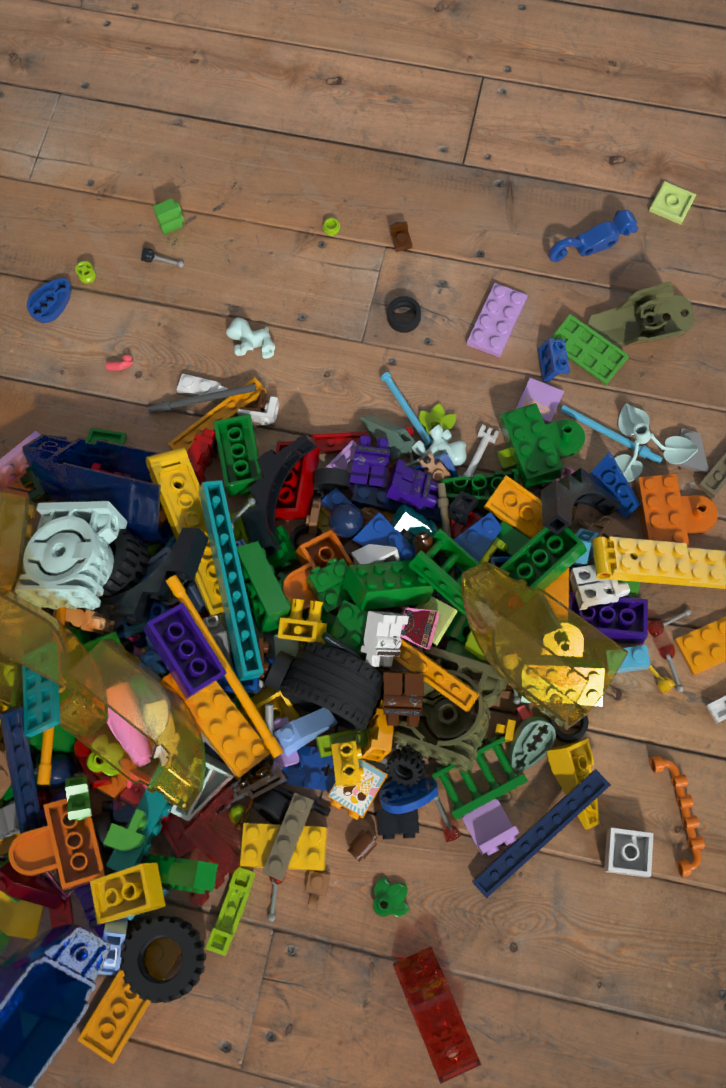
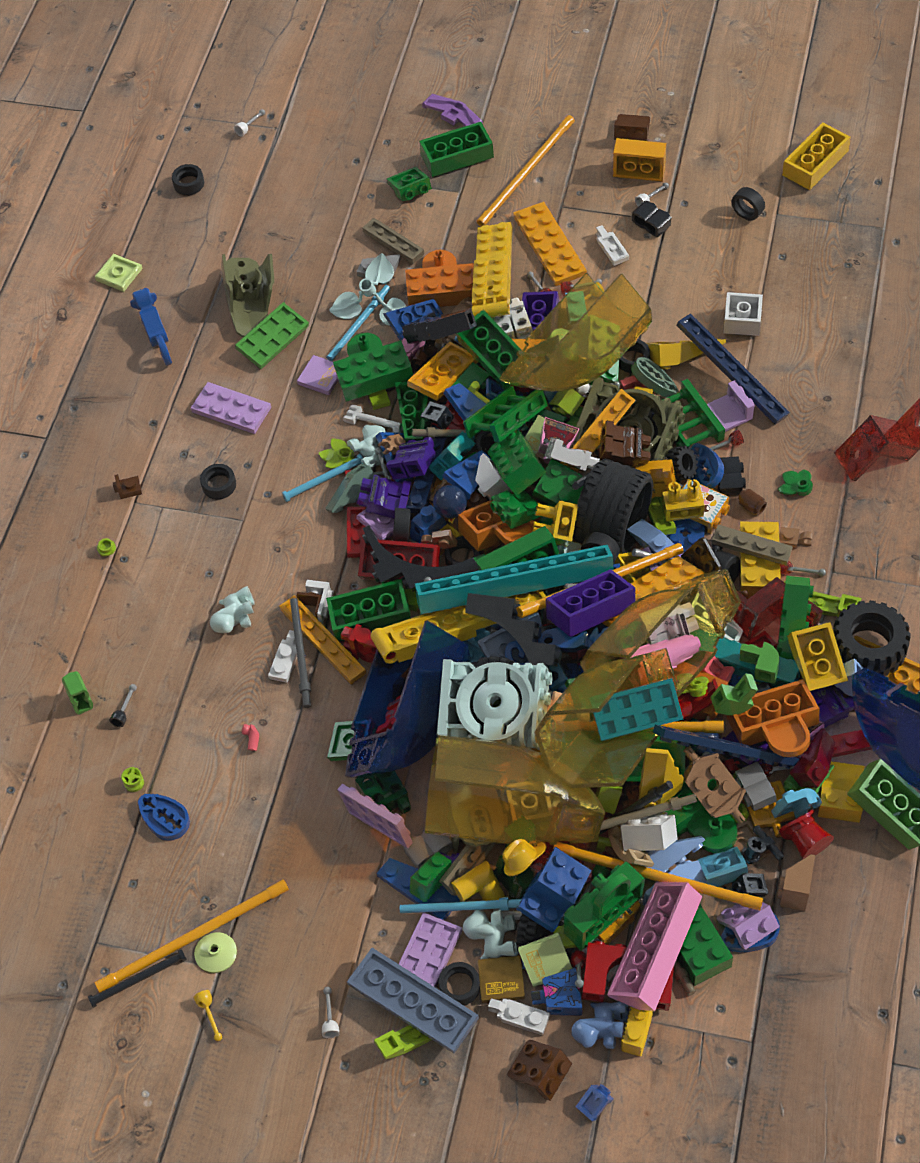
camera: 90 degrees left, 15 degrees down
(422, 542) = (478, 439): reddish brown brick -> none
(553, 358) = (280, 361): blue bracket -> none
(689, 822) = (666, 297): orange bar -> none

